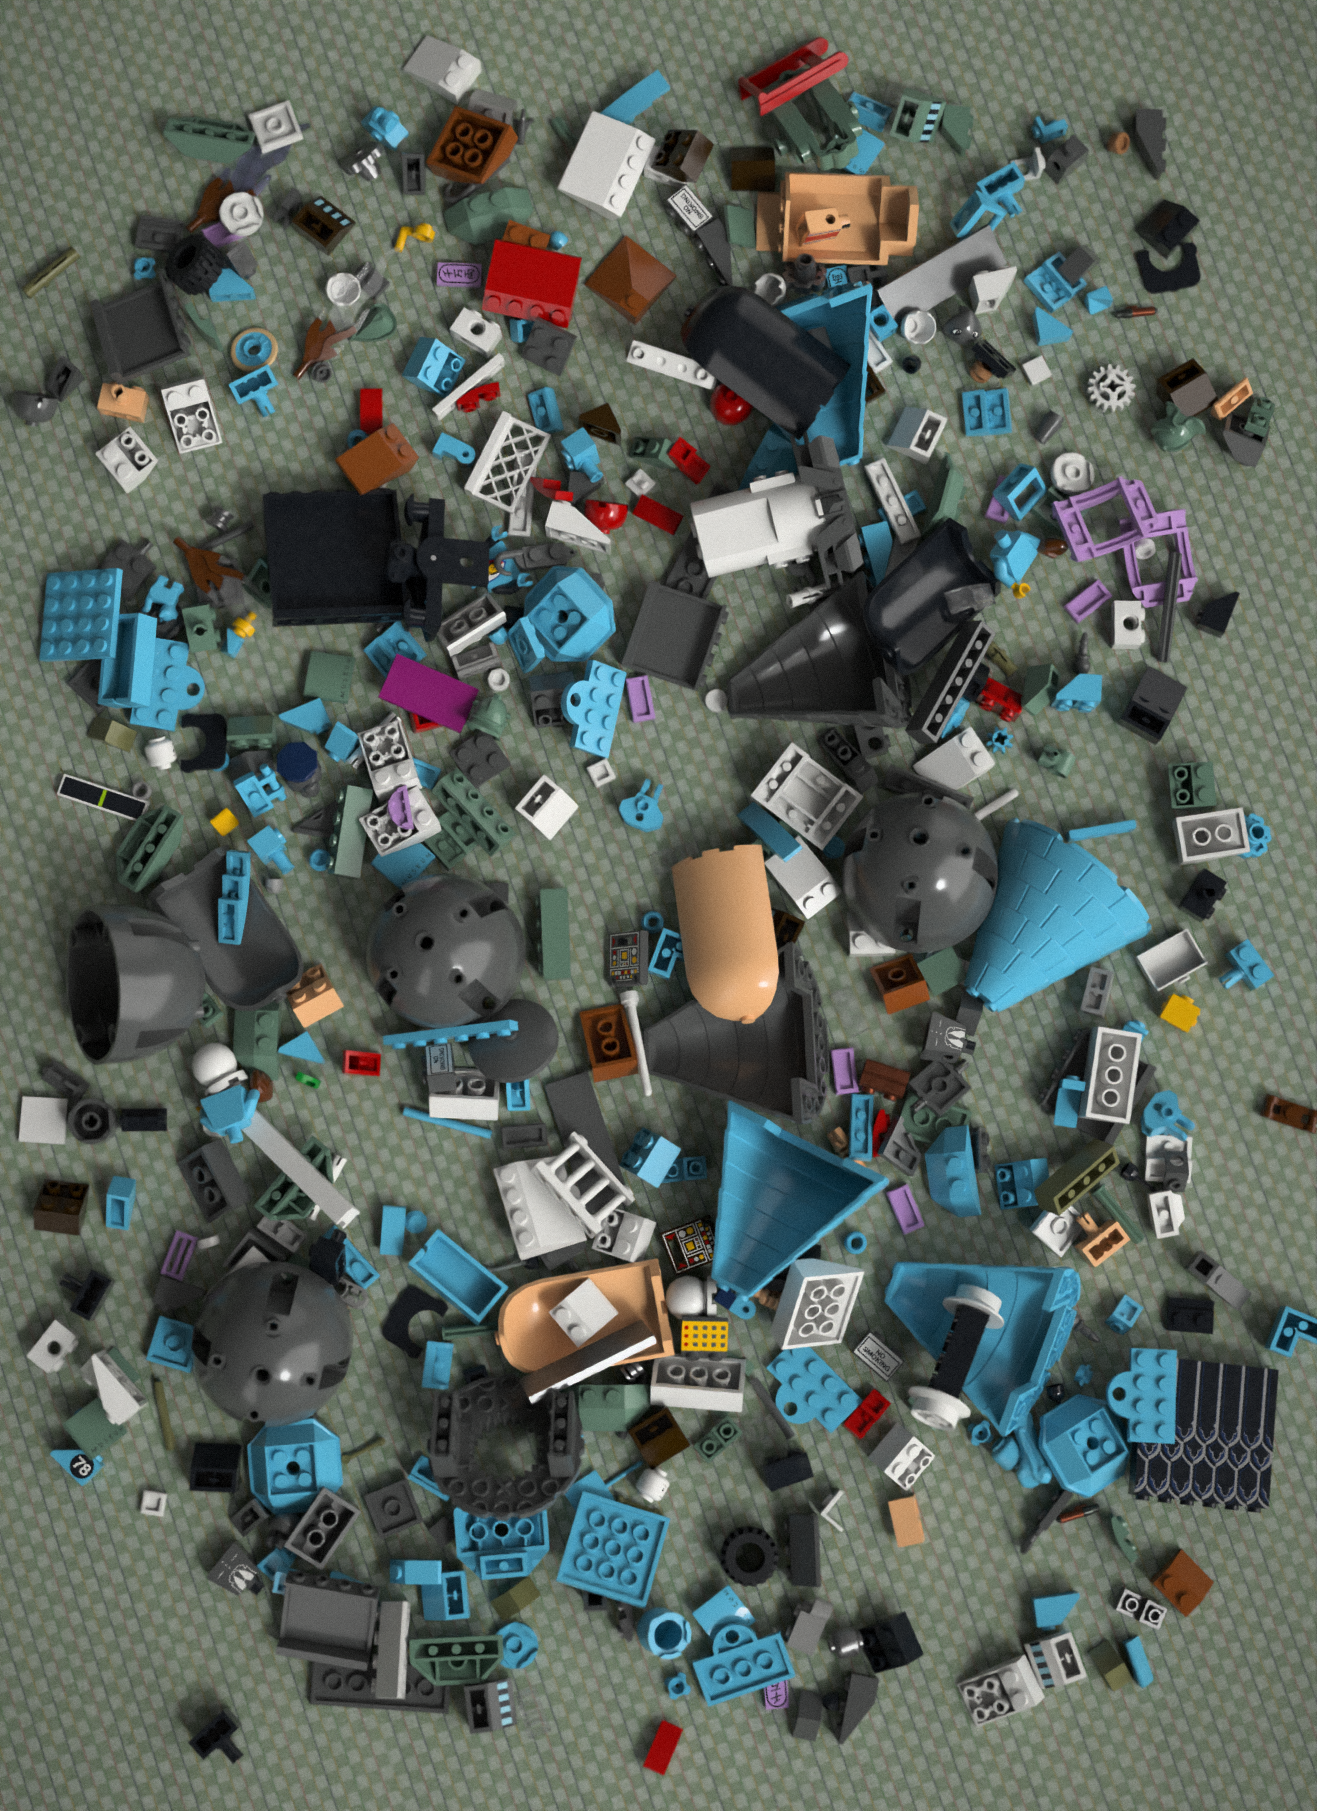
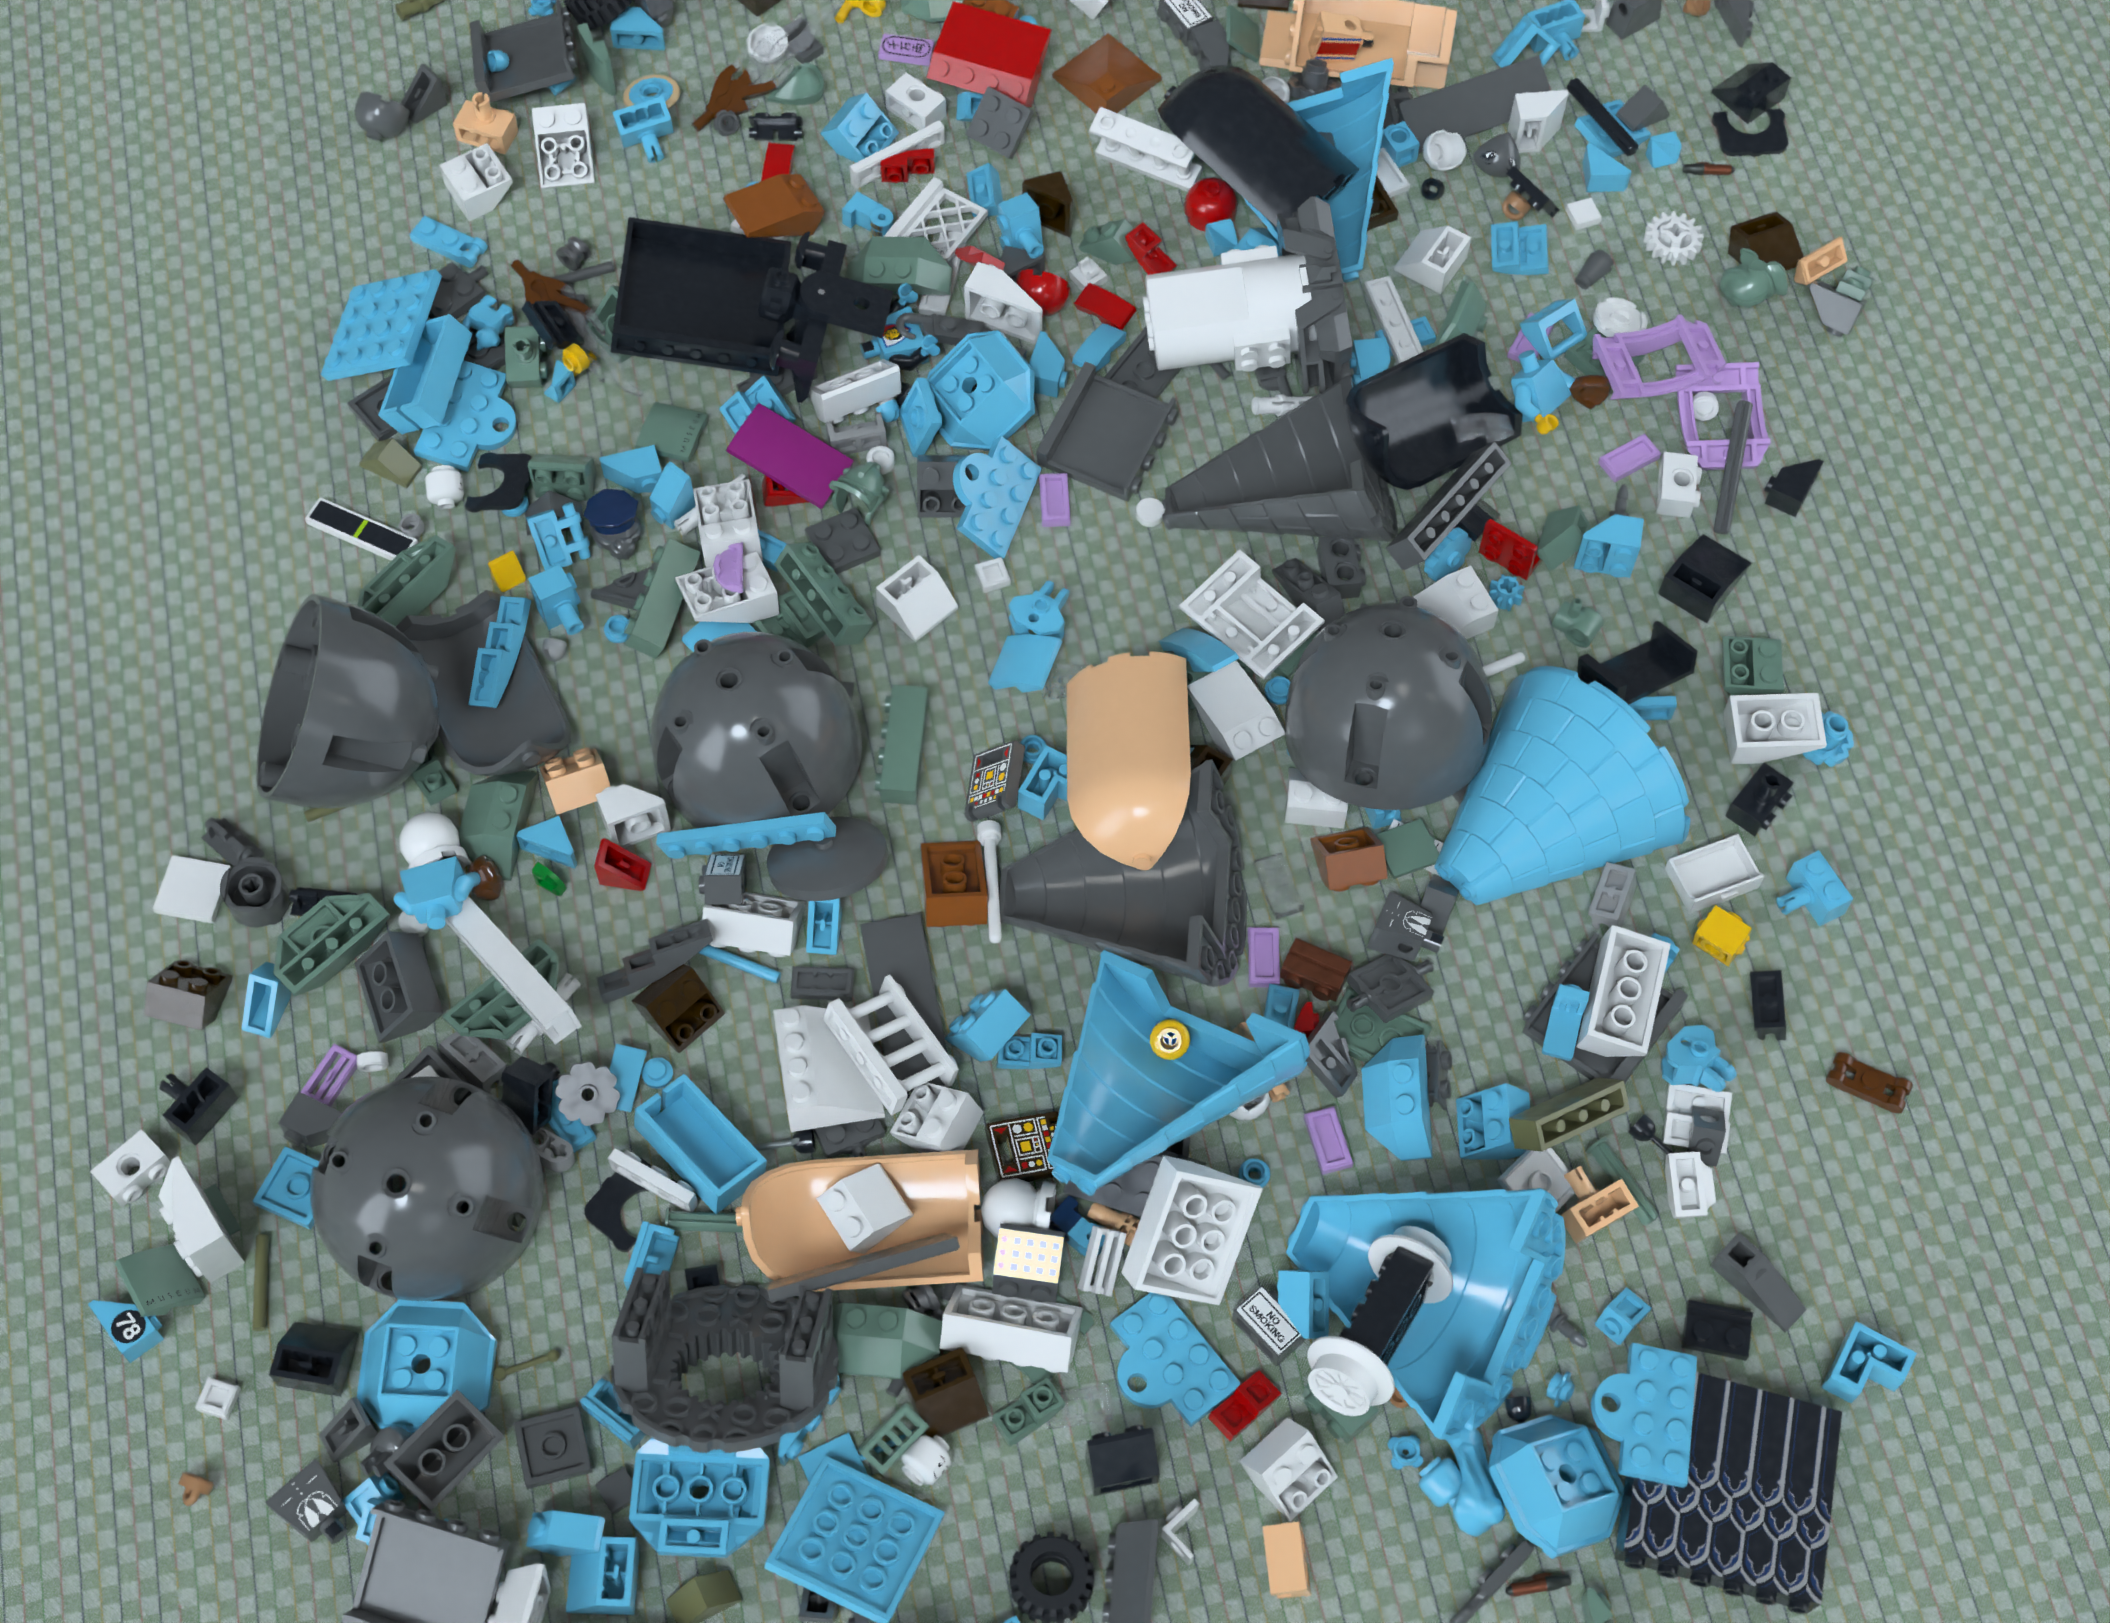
camera: 10 degrees right, 20 degrees down
(114, 518) = (448, 241): none -> medium azure plate
(122, 341) = (497, 60): none -> medium azure hinge
(153, 1155) = (326, 940): none -> sand green wedge
(153, 1566) = (194, 1486): none -> medium nougat tile
(219, 601) = (552, 324): none -> black plate
(354, 371) = (765, 124): none -> black hinge
(359, 1024) = (632, 814): none -> white slope
(370, 1250) = (581, 1077): none -> flat silver plant
(397, 1142) = (665, 955): none -> dark grey slope
(422, 1169) = (679, 1007): none -> dark brown slope
(429, 1306) = (653, 1179): none -> white plate
(487, 504) = (900, 260): none -> sand green wedge
(619, 580) = (1048, 367): none -> medium azure slope
(624, 1489) = (885, 1463): none -> sand green slope
(637, 851) = (1025, 662): none -> medium azure slope
(657, 555) = (1099, 345): none -> medium azure slope
(744, 434) = (1221, 236): none -> medium azure slope
(759, 1325) = (1113, 1262): none -> white tile
(772, 1408) = (1112, 1378): dark grey bar -> none
(784, 1156) = (1168, 1050): none -> yellow head
(901, 1339) = (1305, 1300): none -> medium azure slope
(1001, 659) = (1513, 502): olive pin -> none
(1046, 274) = (1602, 117): none -> black axle
(1105, 799) = (1643, 668): none -> black panel
(1215, 1064) = (1768, 1003): none -> black hinge

